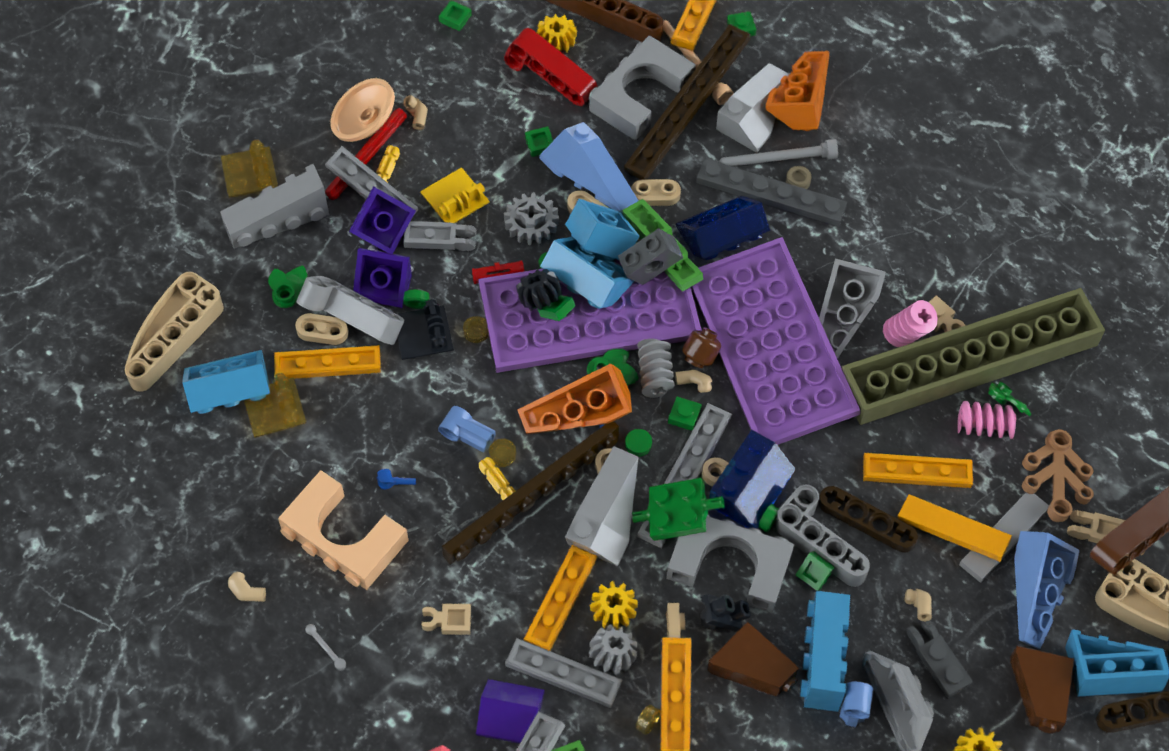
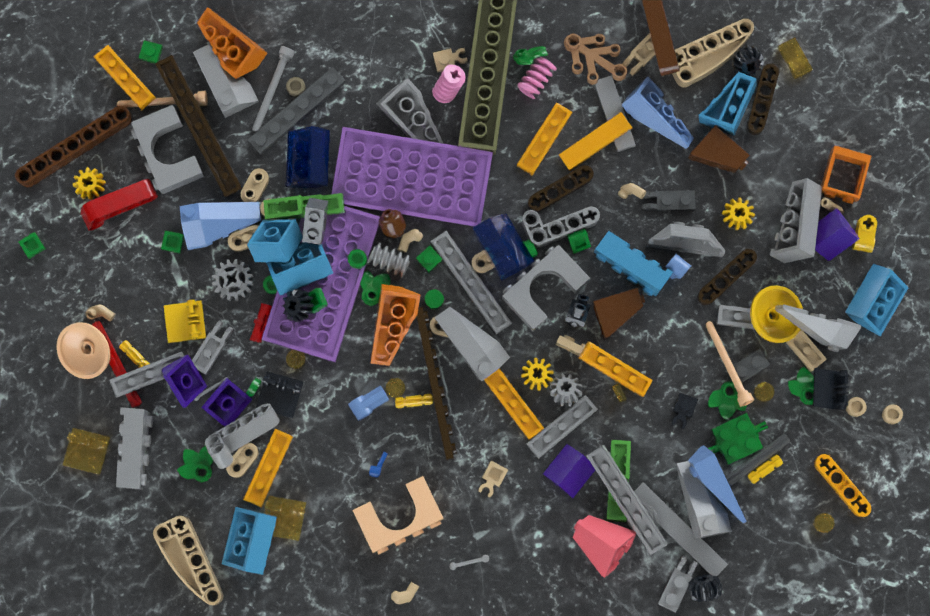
camera: 60 degrees left, 20 degrees up
(634, 330) = (357, 259): none -> green tile
(677, 509) = (499, 302): green plate -> none

